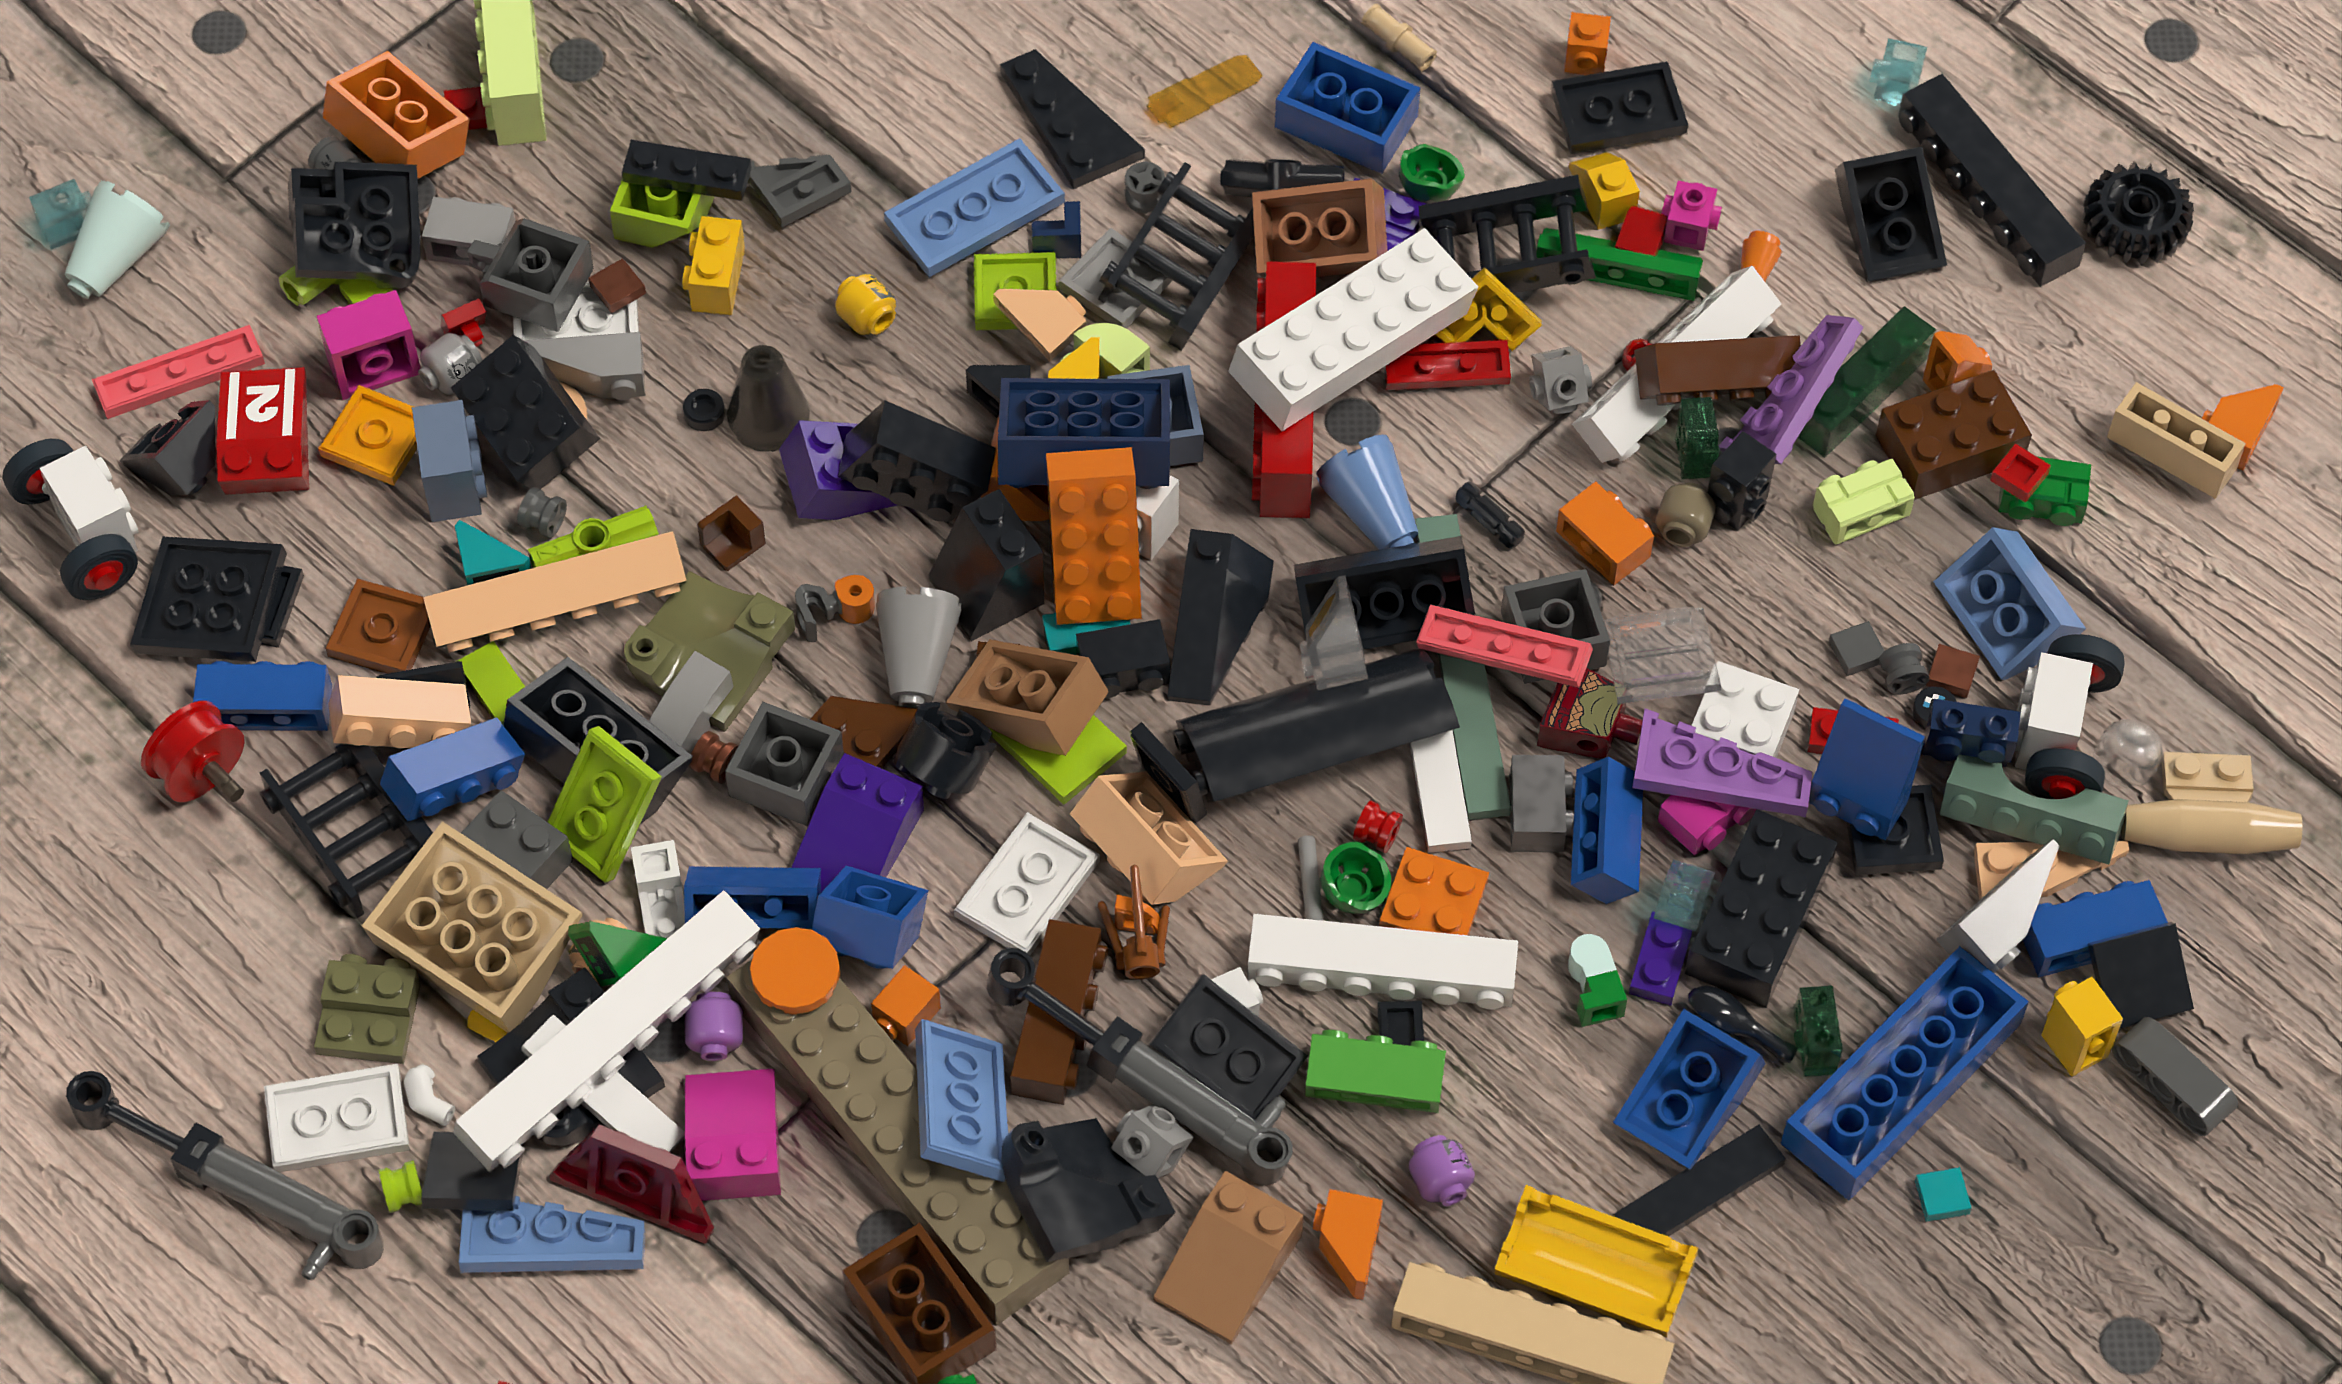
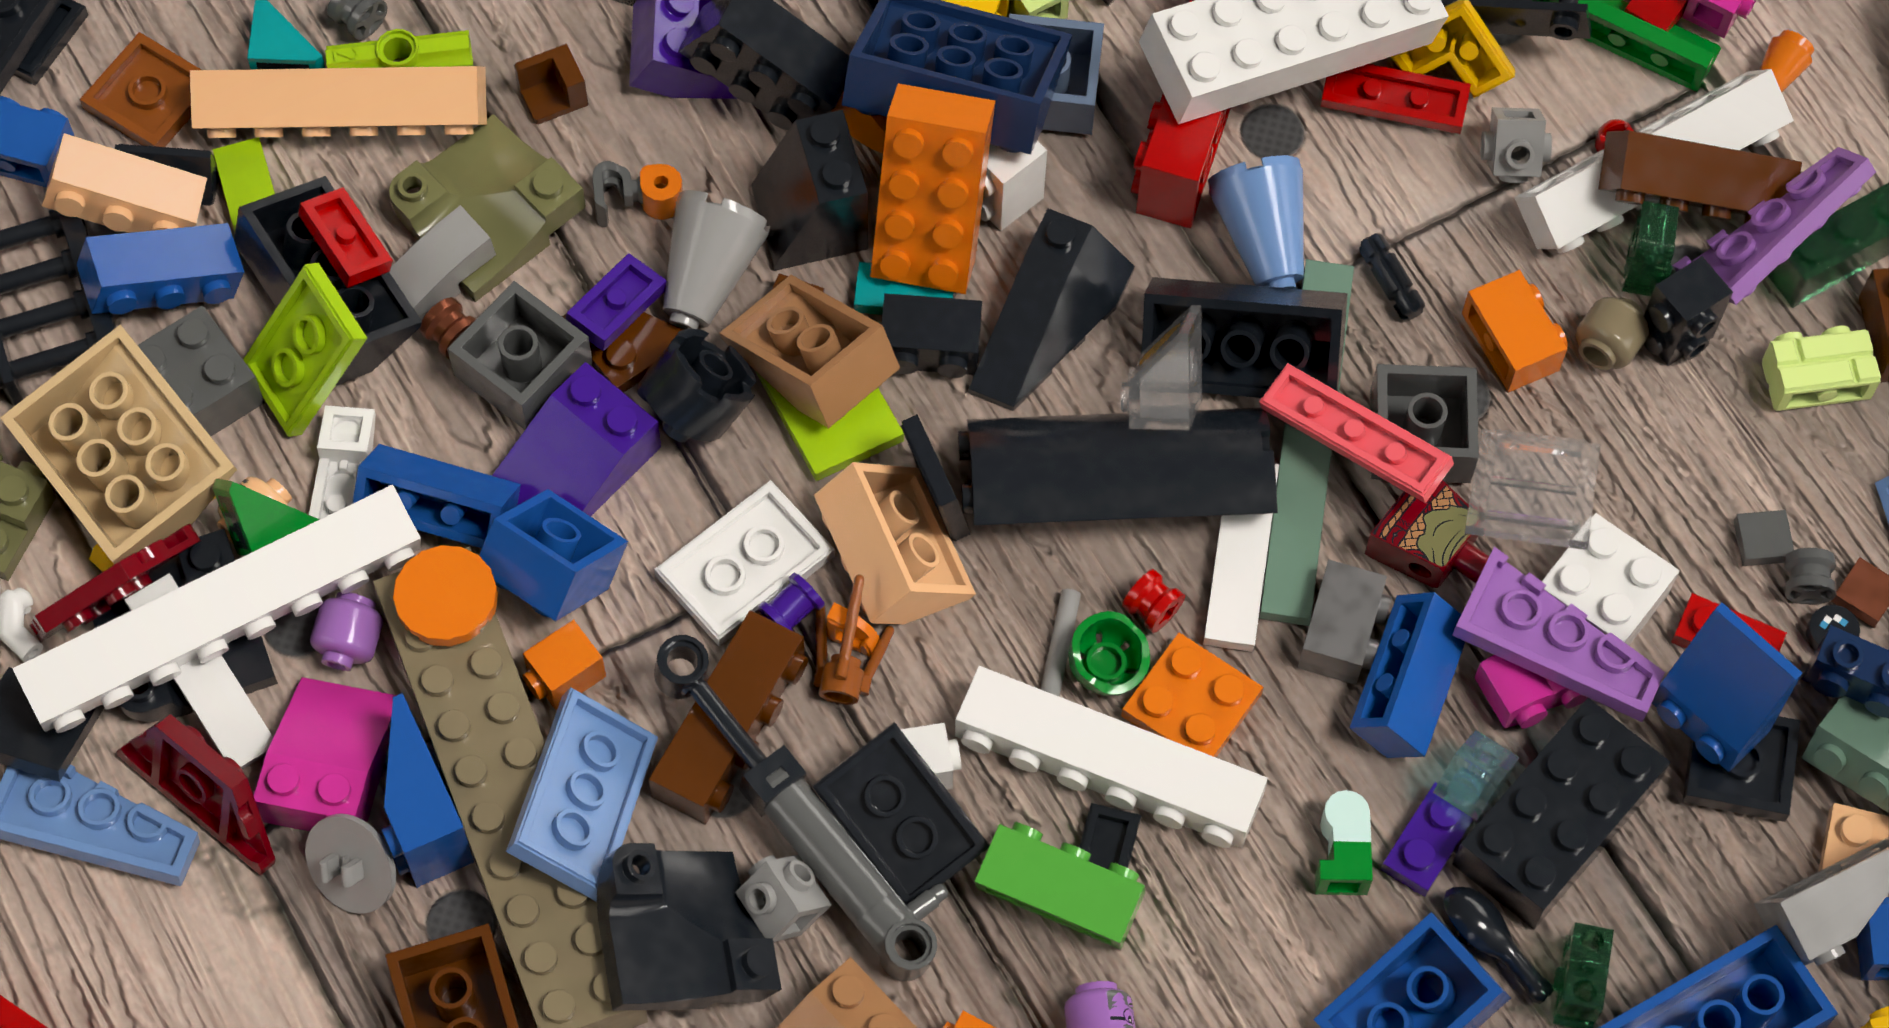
camera: 15 degrees right, 5 degrees up
(513, 1032) = (111, 586): none -> dark red wing
(607, 701) = (345, 237): none -> red plate
(783, 1210) = (350, 863): none -> light grey piece
(836, 1154) = (423, 822): none -> blue slope
(852, 697) = (616, 301): none -> dark purple plate
(1080, 904) = (792, 603): none -> dark purple bush

